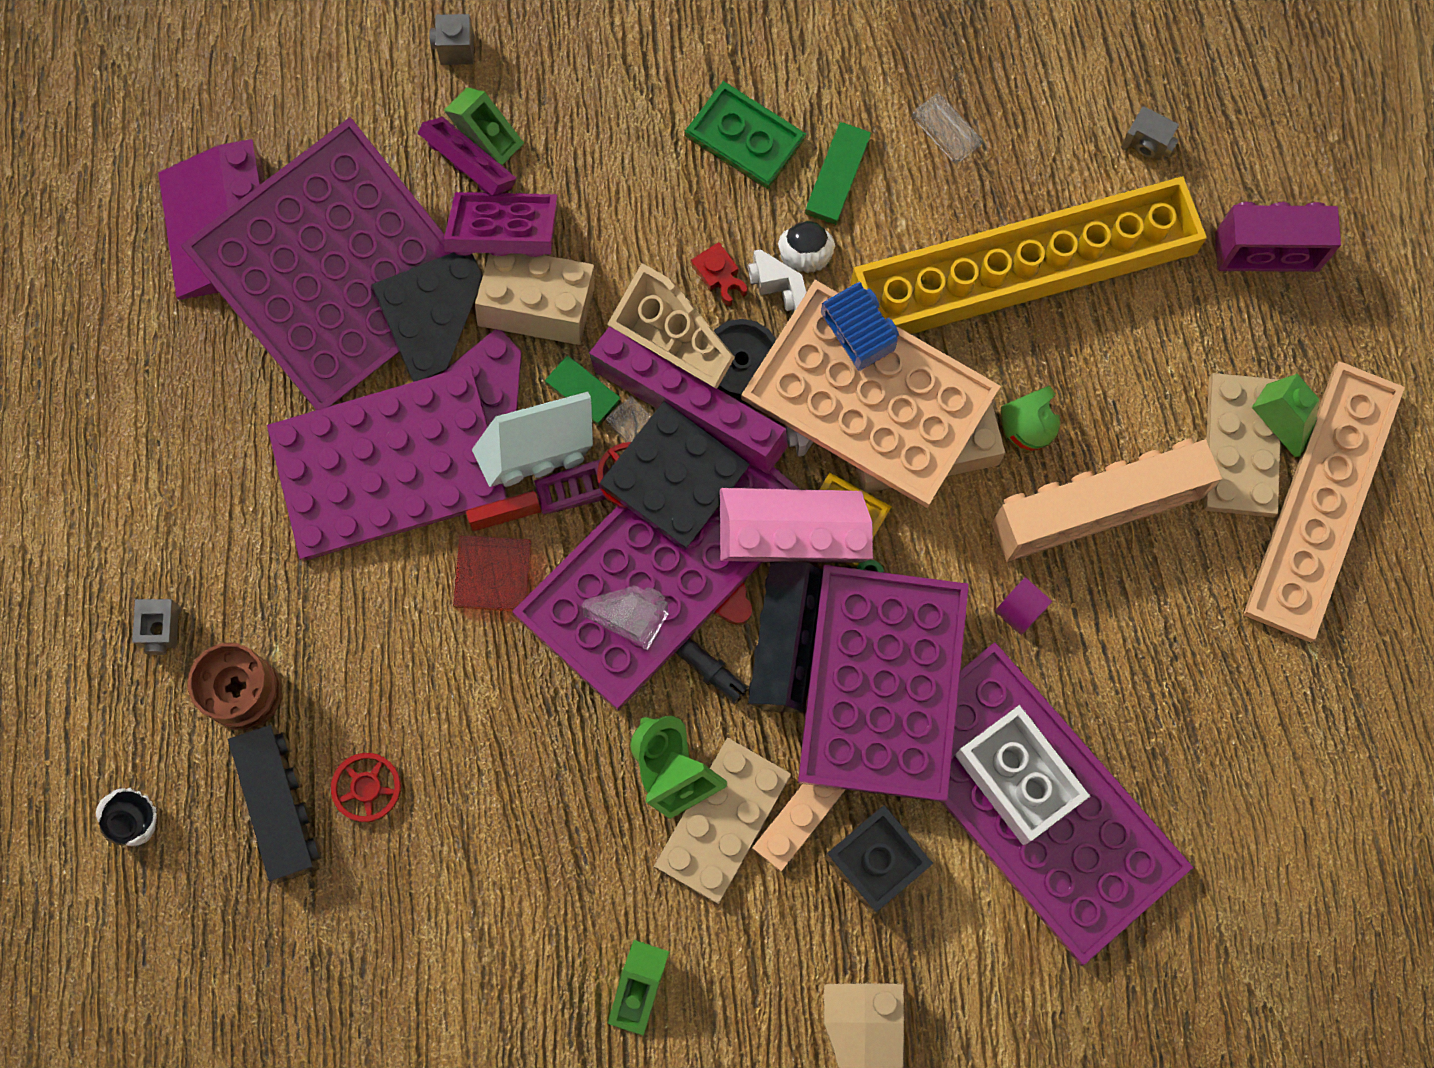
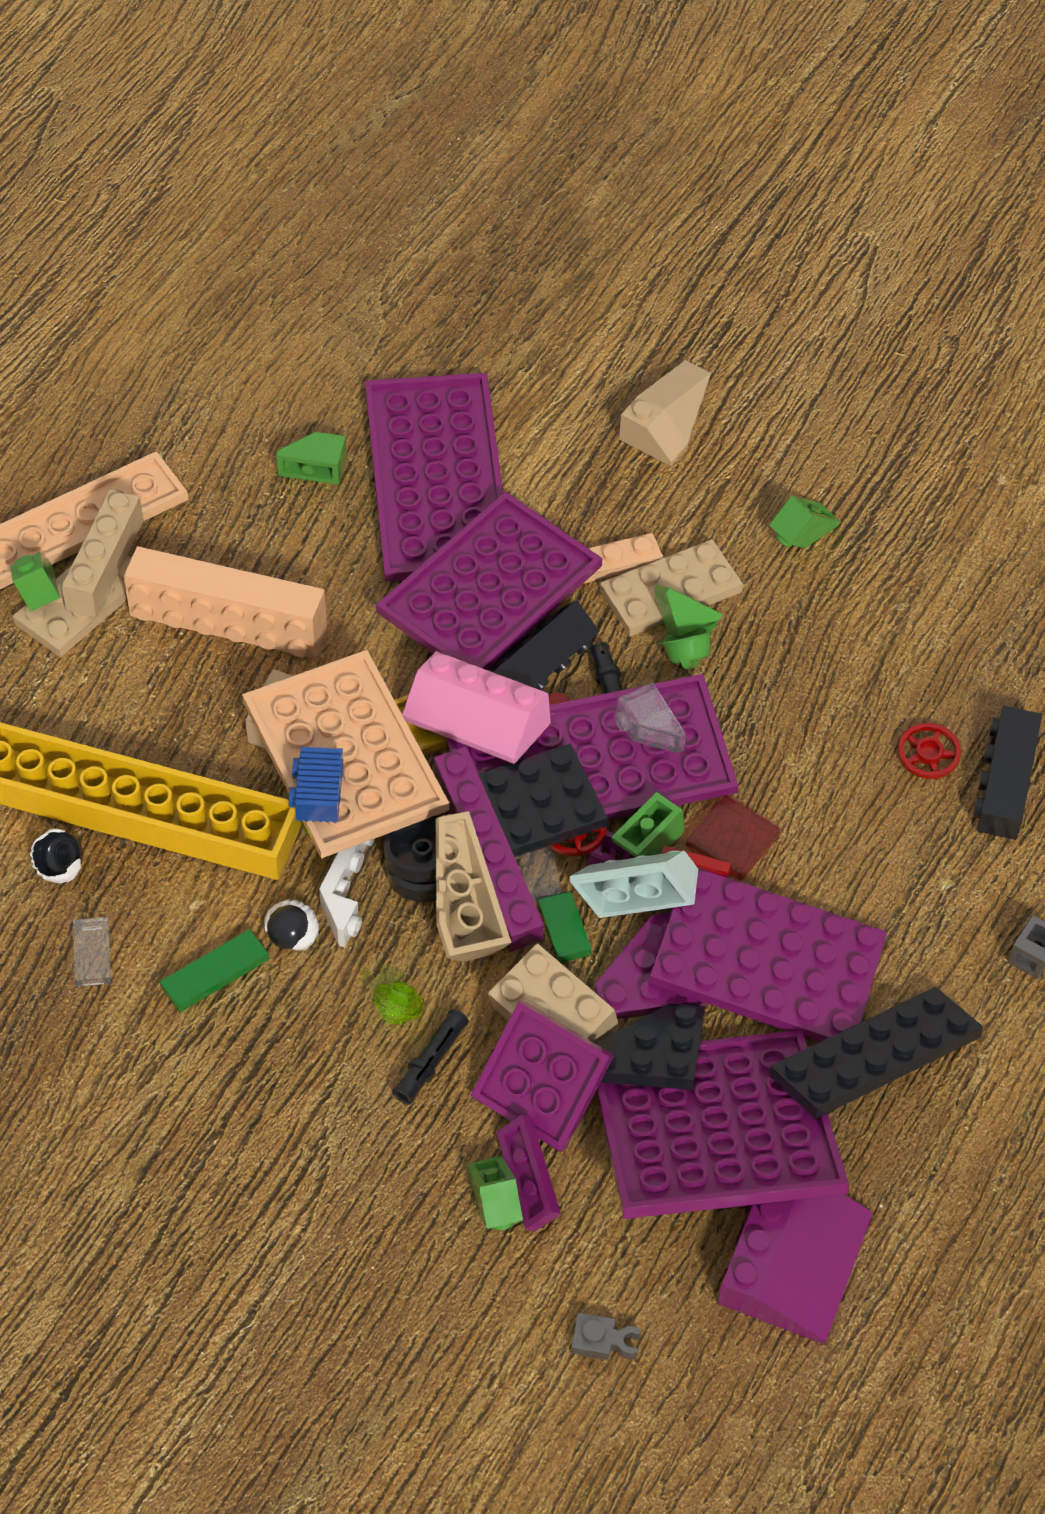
camera: 145 degrees left, 20 degrees down
(219, 676) = (995, 854): copper wheel -> none
(238, 418) = (875, 1052): none -> black plate
(334, 71) = (596, 1337): none -> flat silver plate
(453, 39) = (466, 1285): flat silver brick -> none
(562, 511) = (651, 827): none -> bright green slope
(610, 191) = (430, 1057): none -> black pin
(668, 228) = (398, 1002): none -> clear neon green plate
(717, 269) = (380, 953): red plate -> none
(745, 134) = (266, 1051): green tile -> none
(878, 860) = (580, 493): black brick -> none
(1021, 775) = (441, 473): white brick -> none
(1023, 606) = (343, 584): magenta brick -> none
(1029, 420) = (225, 685): bright green helmet -> none
(1040, 179) = (57, 856): none -> black hair
(1163, 739) = (314, 458): none -> bright green slope
(1255, 474) = (102, 553): none -> tan brick

